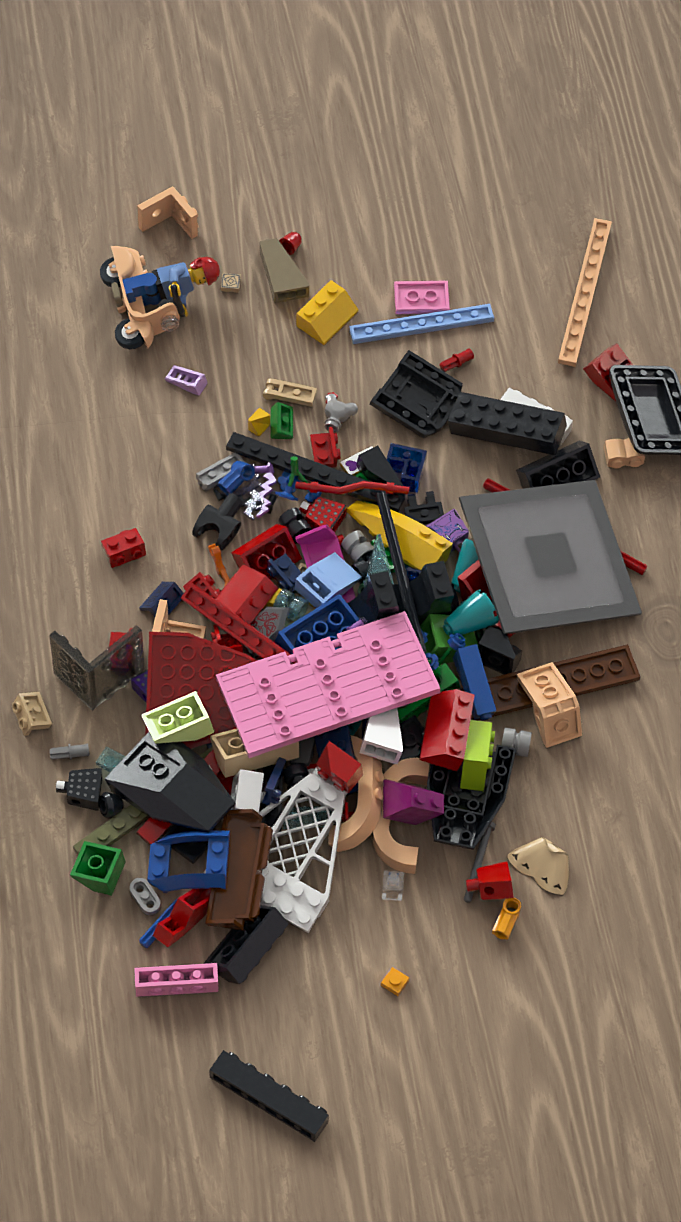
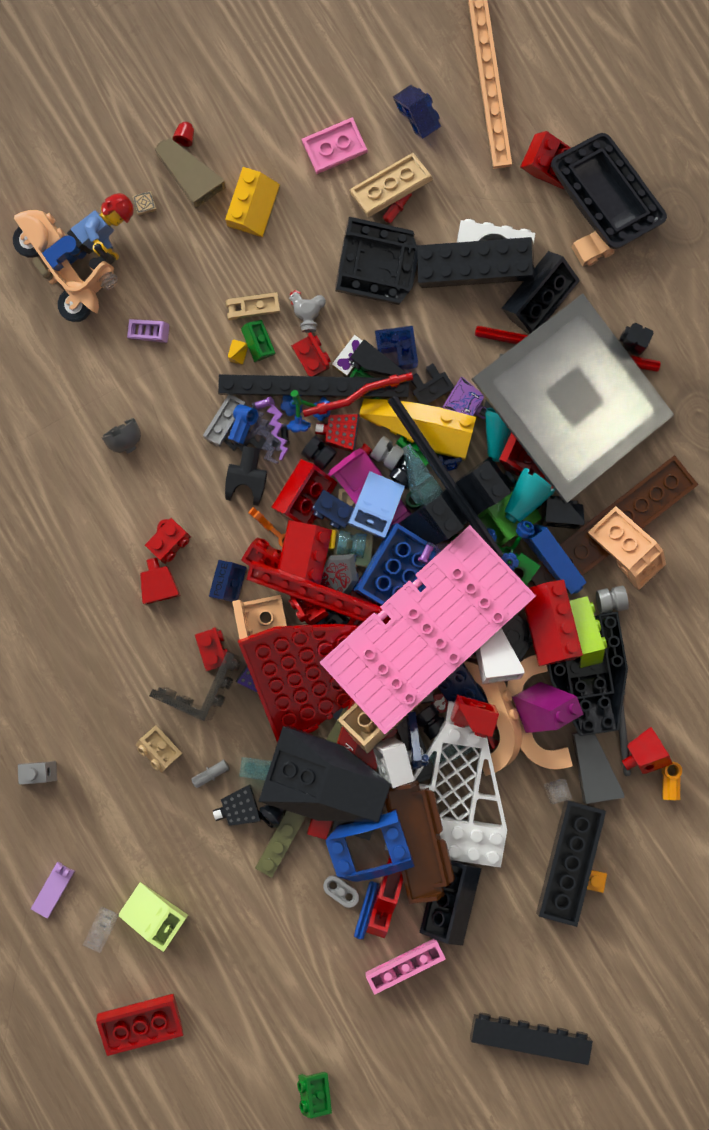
camera: 20 degrees left, 25 degrees up
(35, 1064) = (314, 1095): none -> green bracket
(97, 578) = (157, 583): none -> red torso
(98, 867) = (288, 884): green slope -> none
(124, 449) = (123, 437): none -> dark grey cylinder
(165, 205) = (43, 144): light nougat bracket -> none
(179, 720) = (302, 720): yellowish green slope -> none
(377, 950) = (571, 863): none -> black brick
(421, 323) = (346, 176): light blue tile -> none
(435, 887) = (594, 771): none -> dark grey slope
(458, 341) = (390, 184): none -> tan tile
(508, 292) = (418, 110): none -> clear blue brick
(543, 861) = (680, 710): tan piece -> none
(630, 535) = (636, 338): none -> black brick

